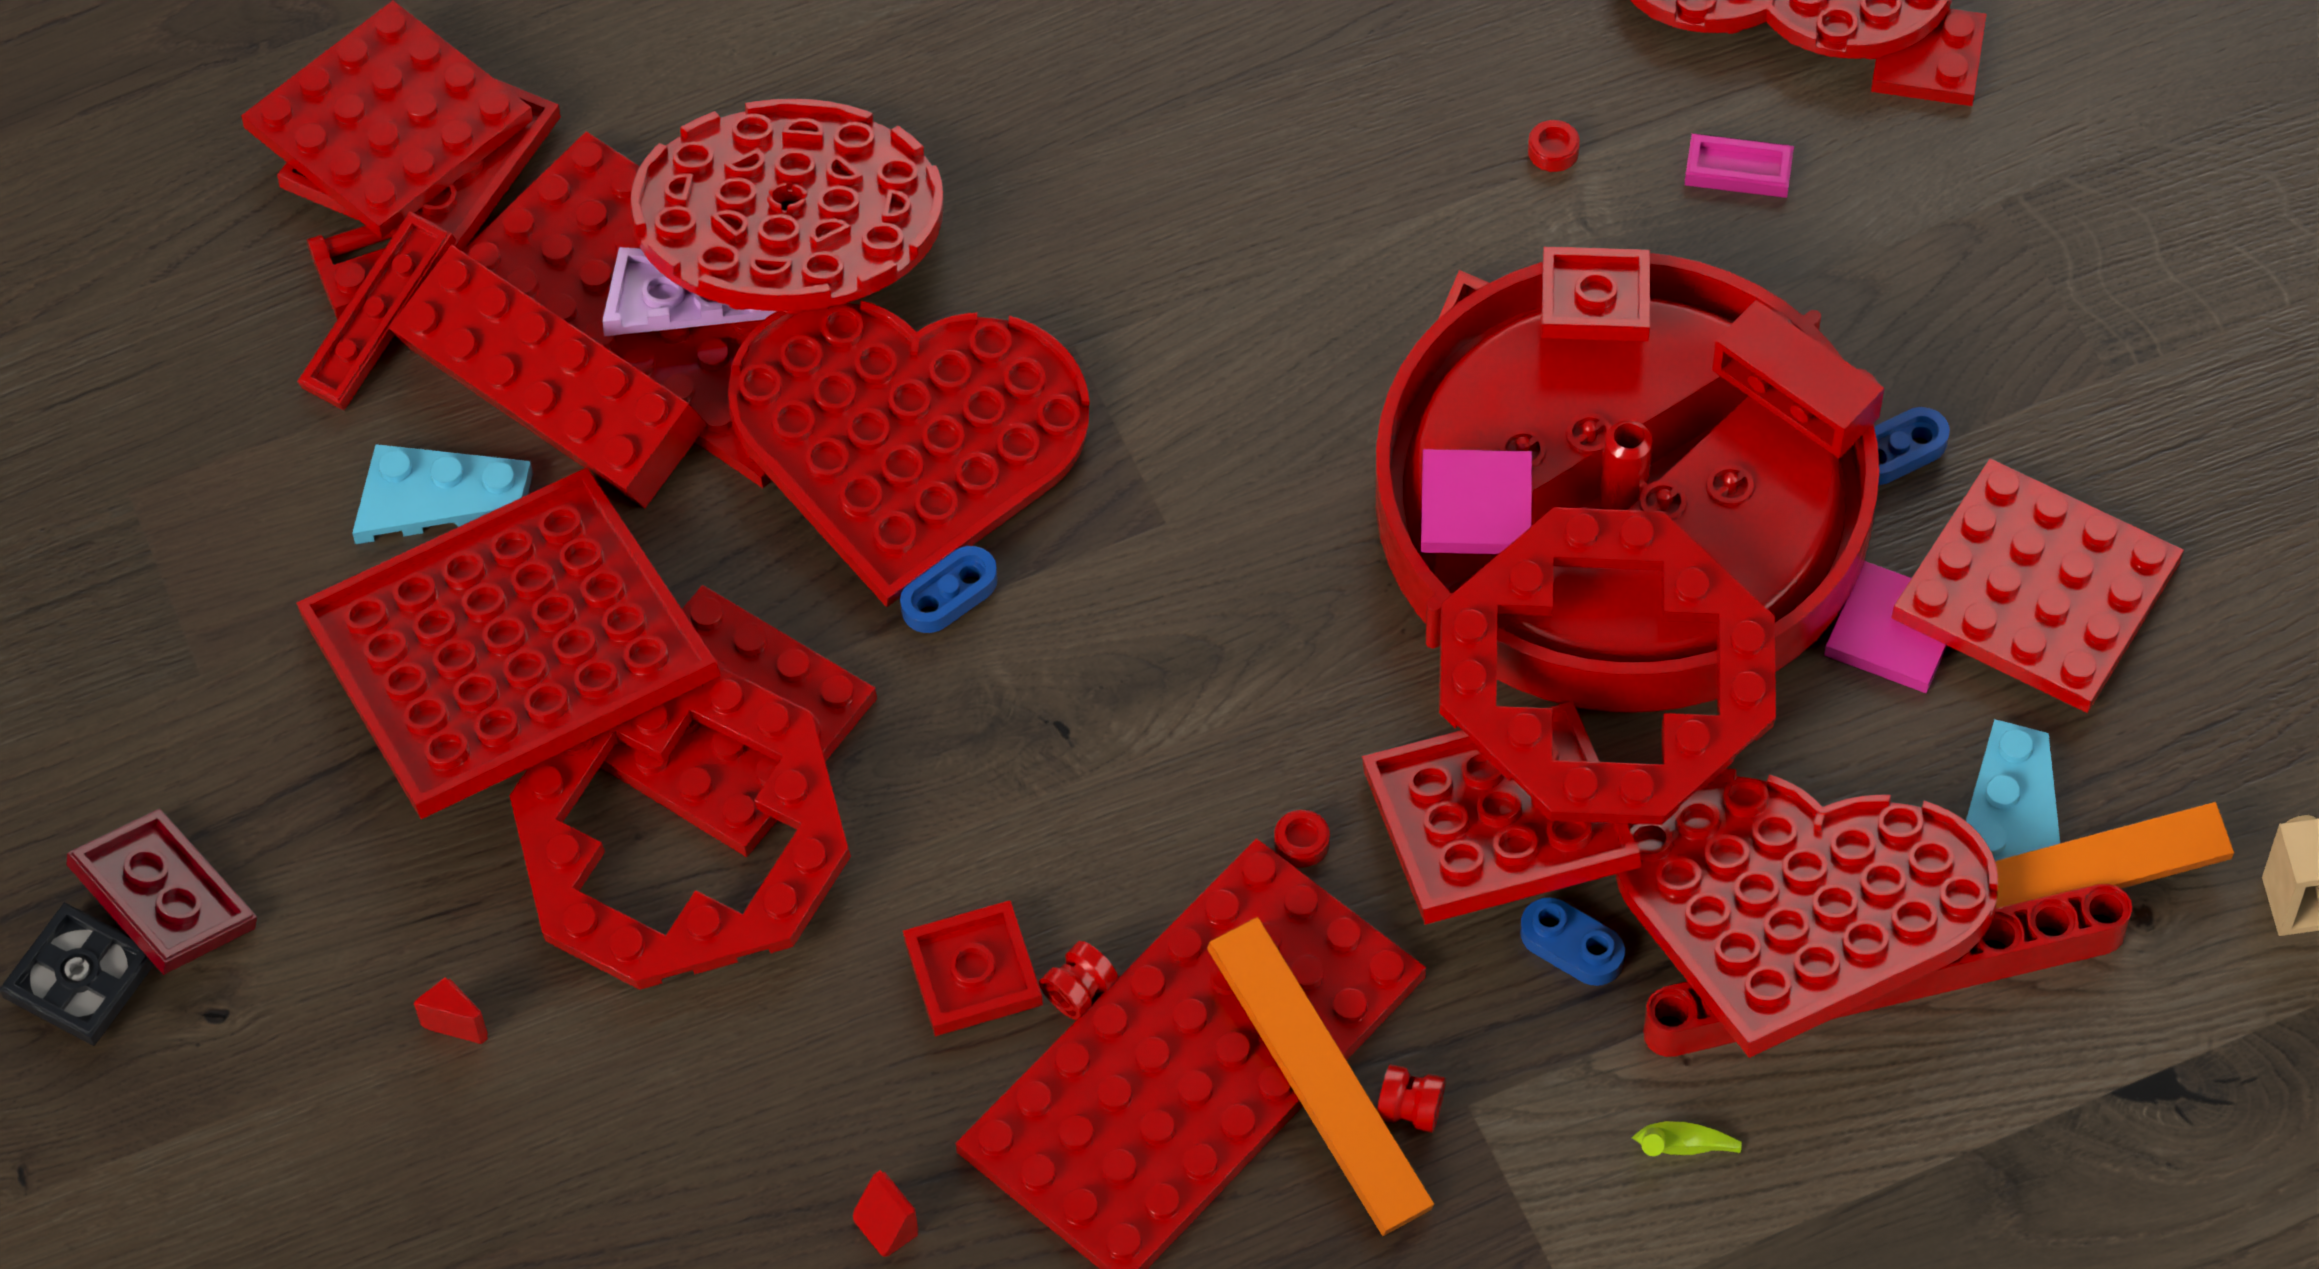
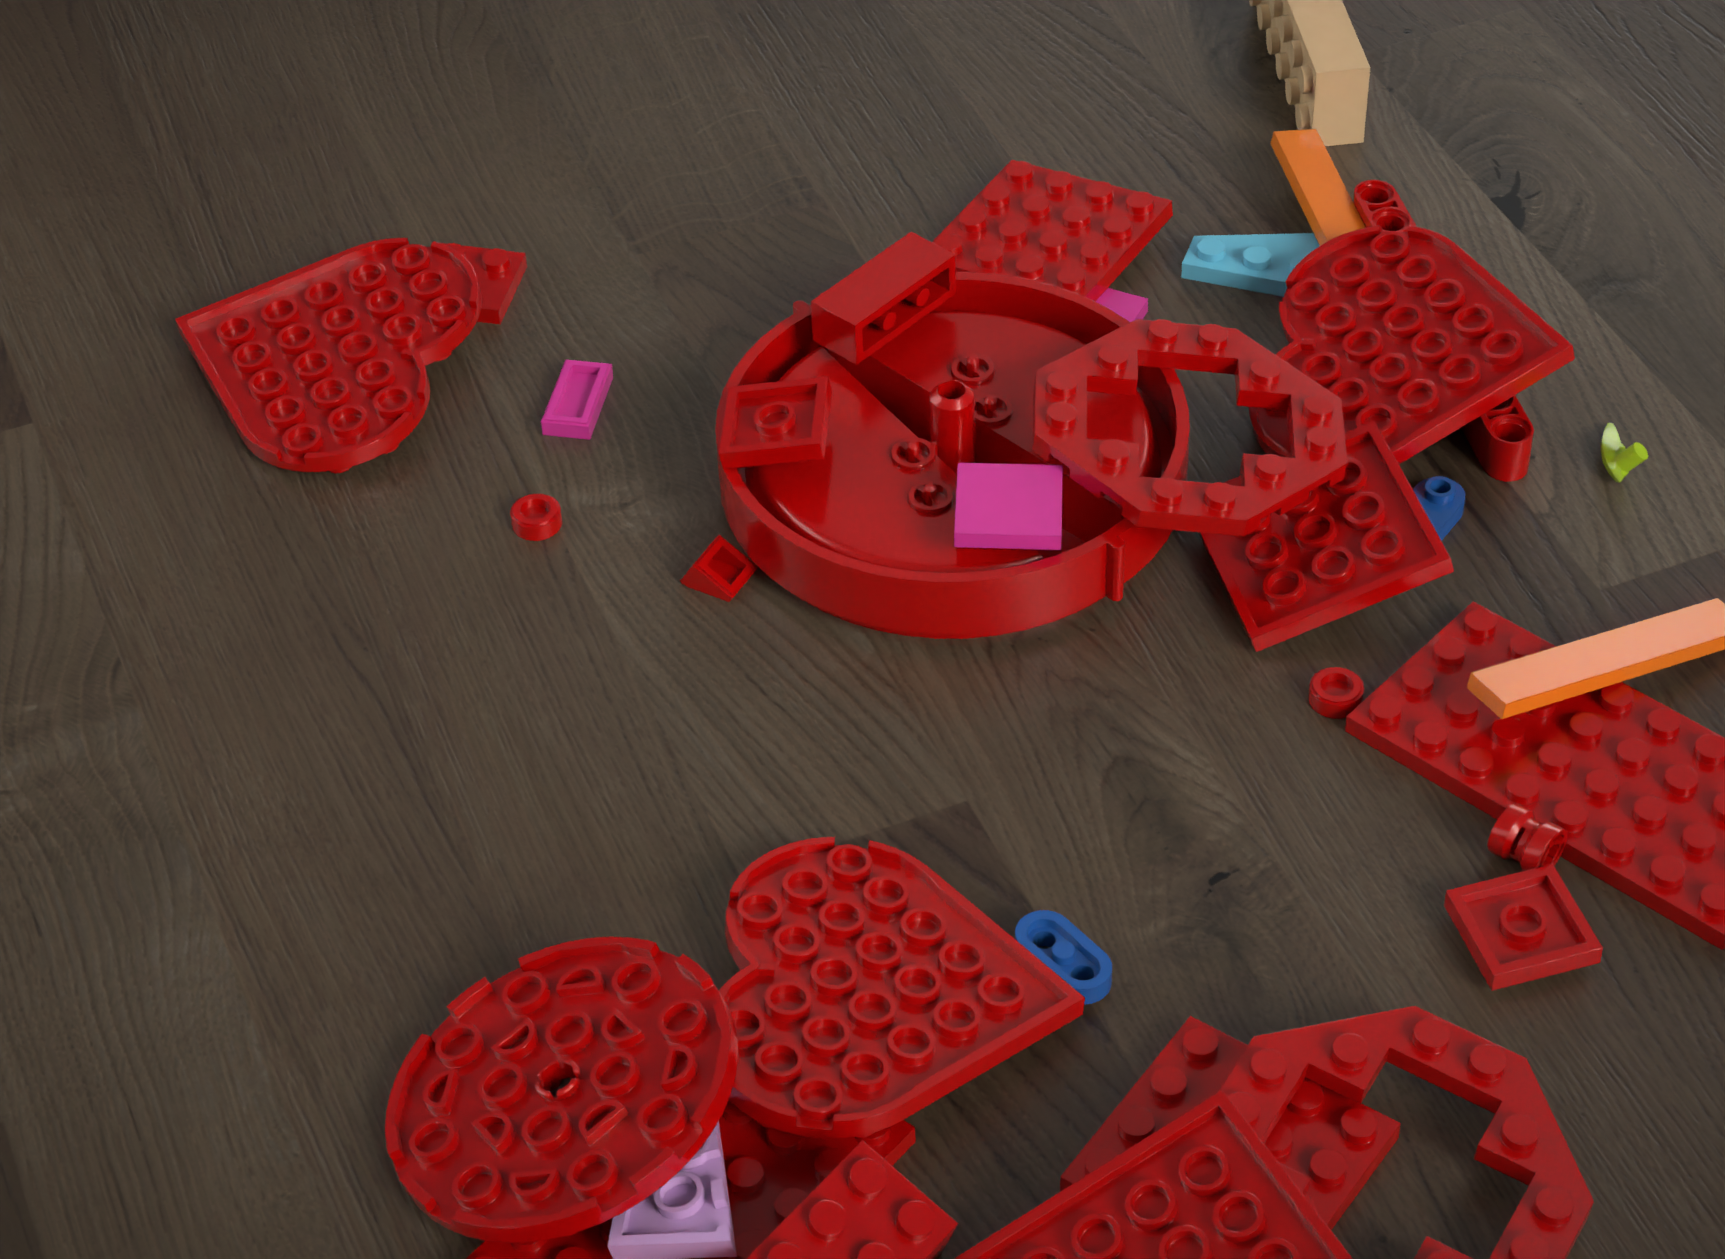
camera: 90 degrees left, 15 degrees down
(1411, 1098) = (1615, 602): red wheel -> none

